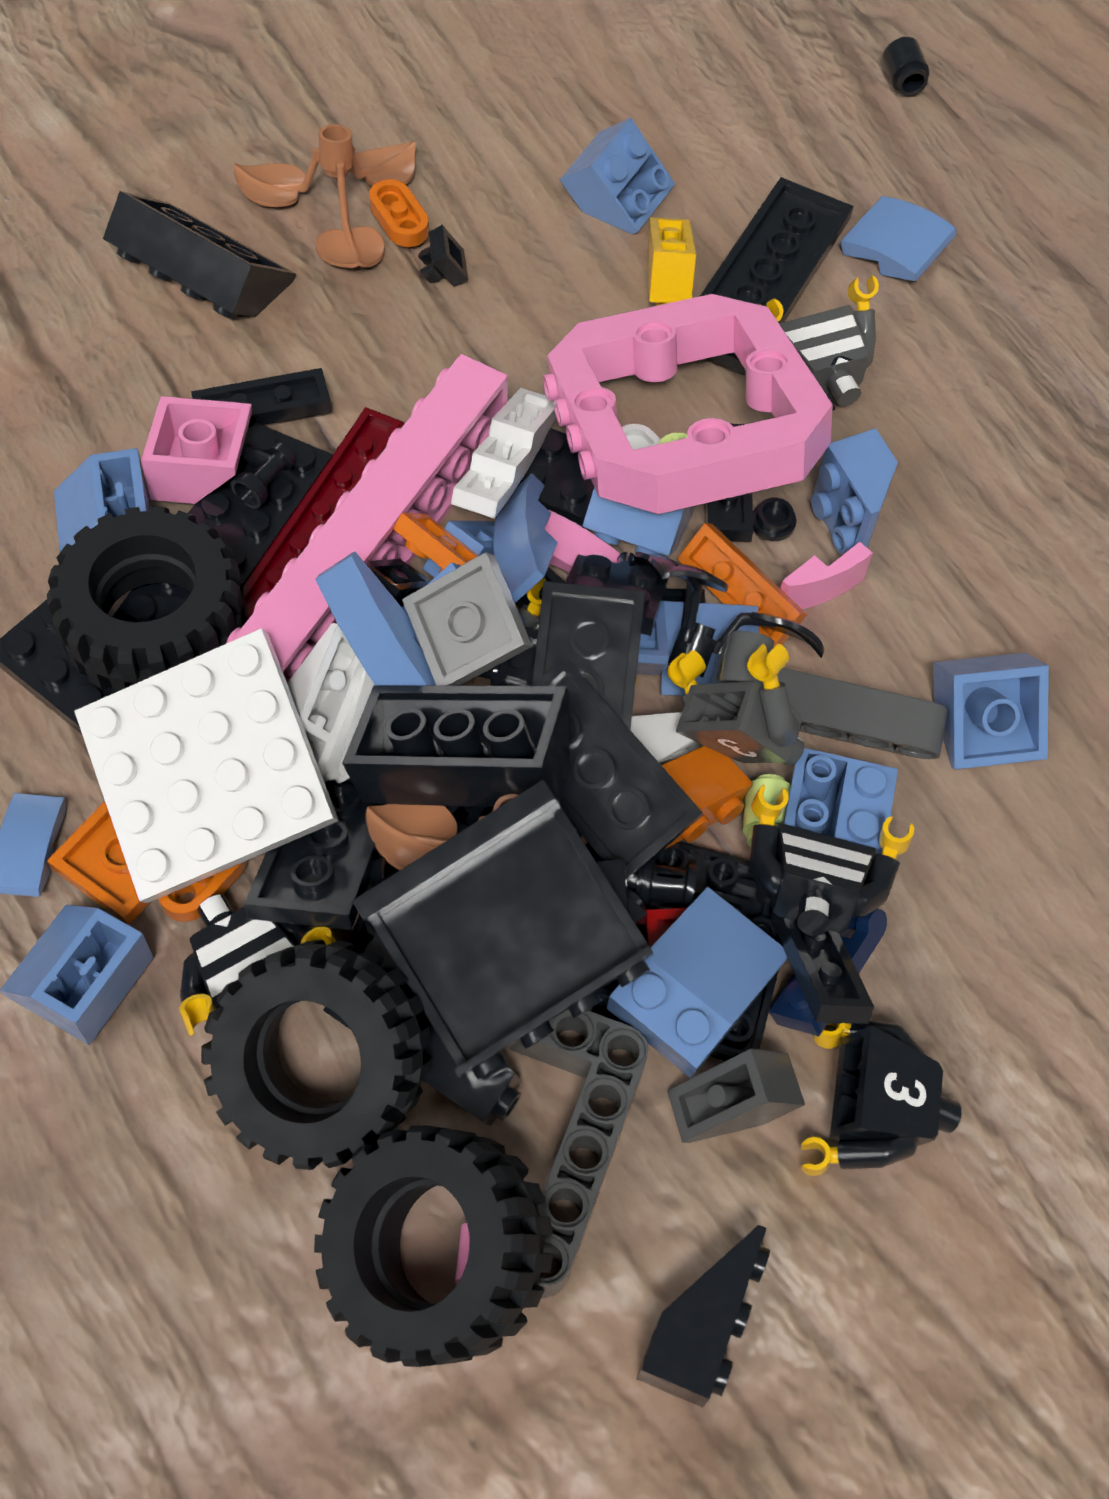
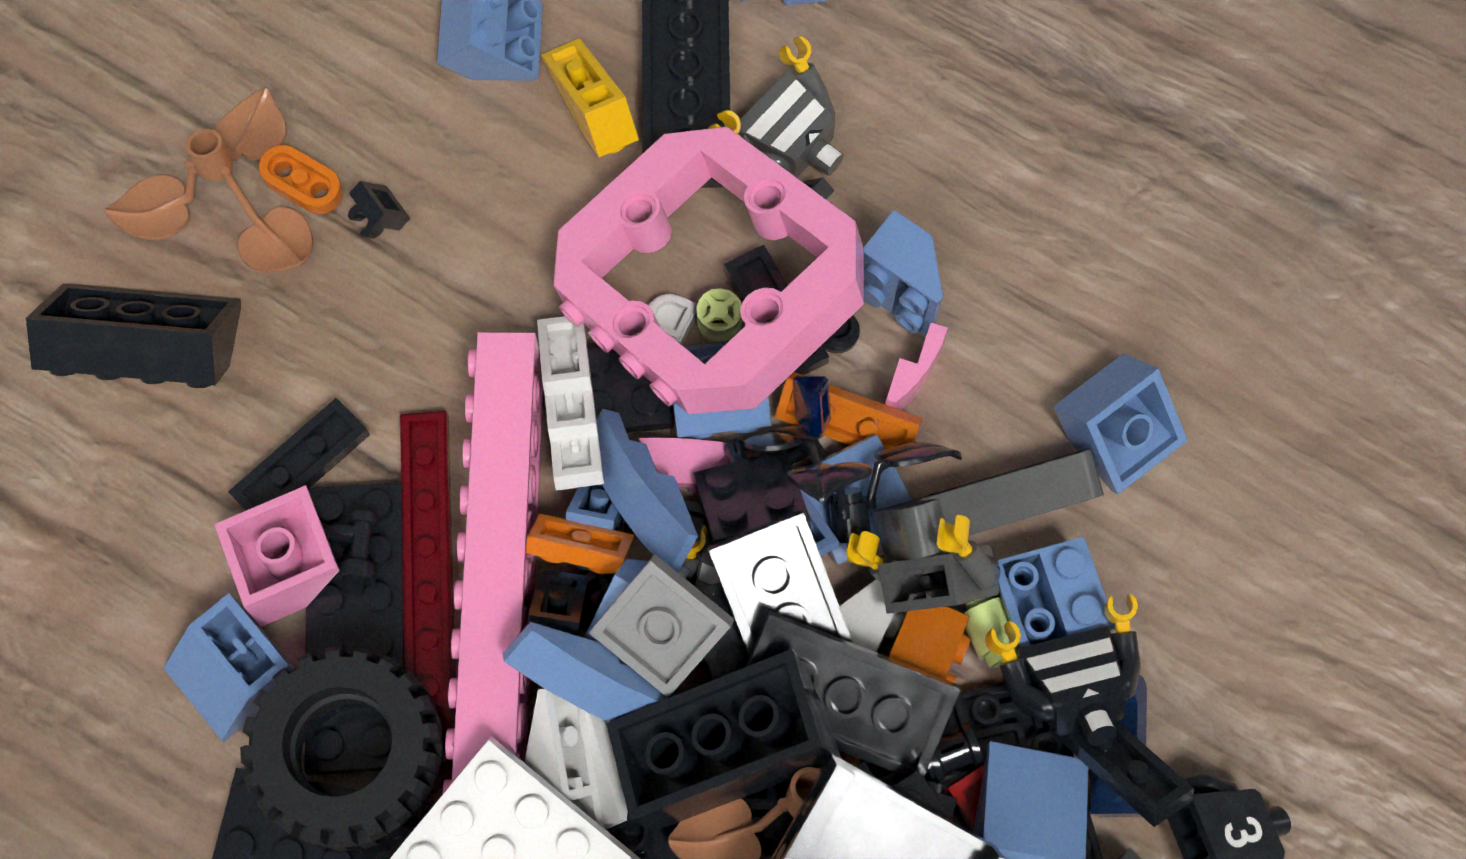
camera: 25 degrees left, 10 degrees up
(717, 551) = (812, 403): none -> clear blue slope

